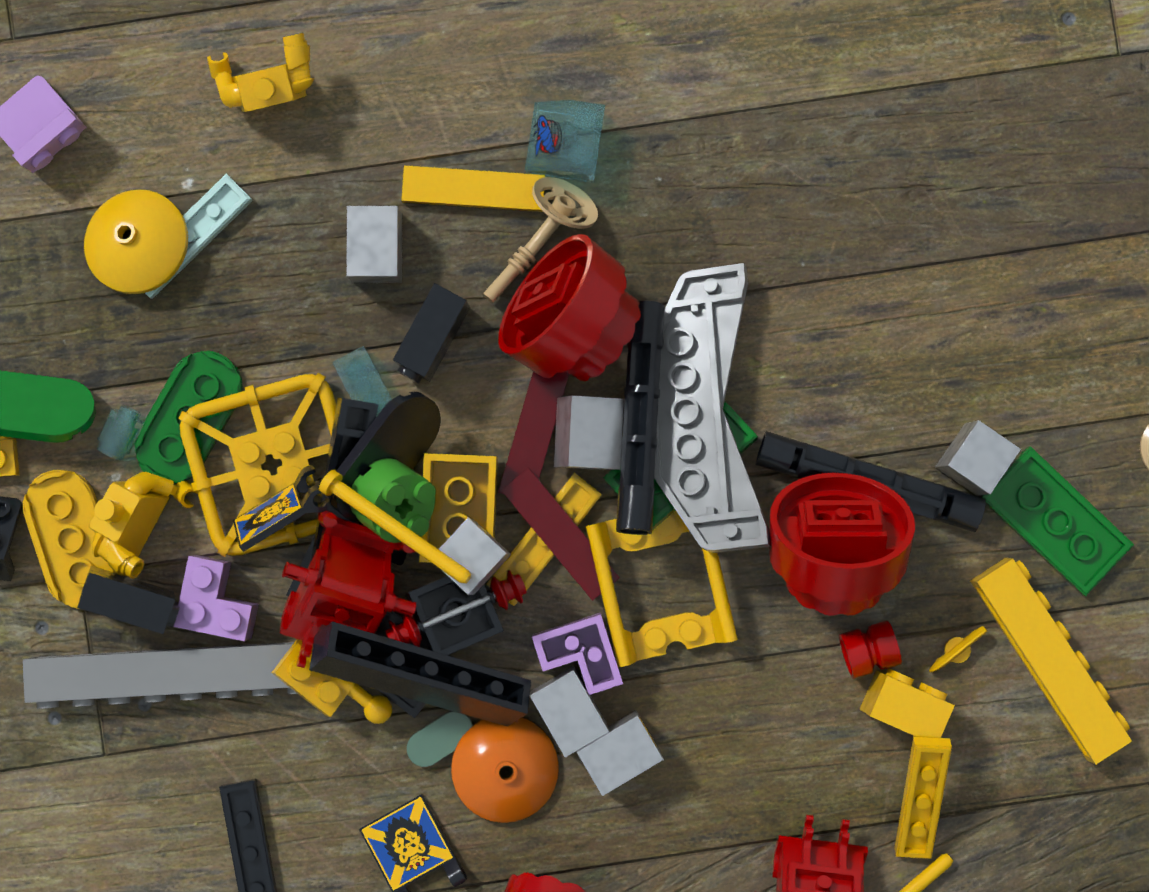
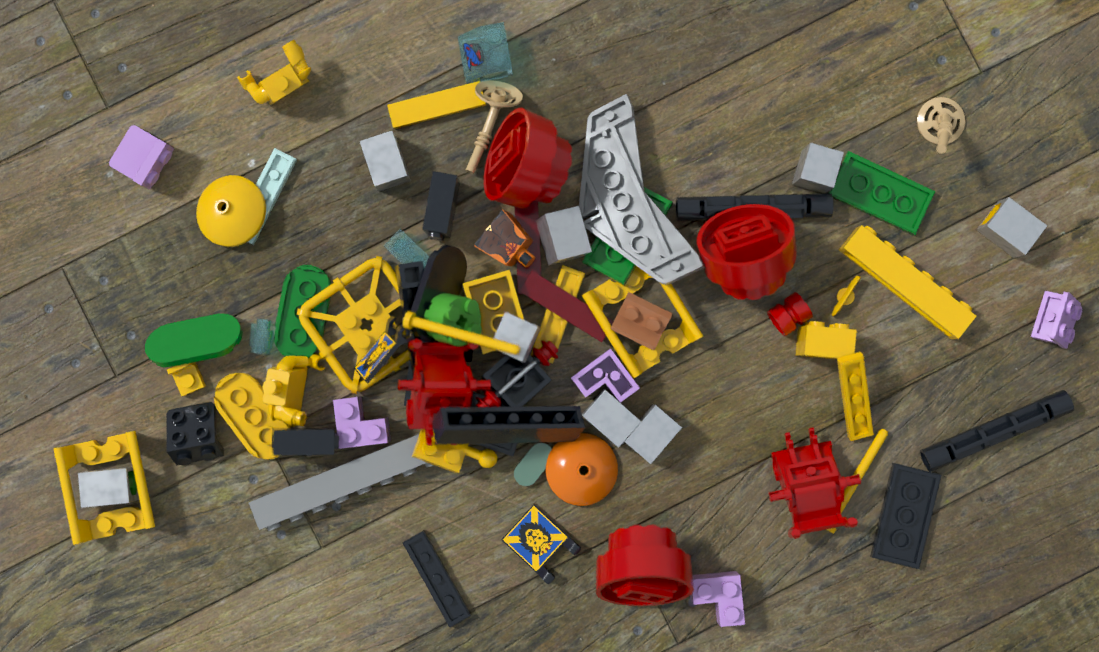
camera: 20 degrees left, 0 degrees up
(506, 413) = (506, 241): none -> torso
(640, 422) = (594, 217): black piece -> none
(656, 590) = (641, 321): none -> nougat bracket

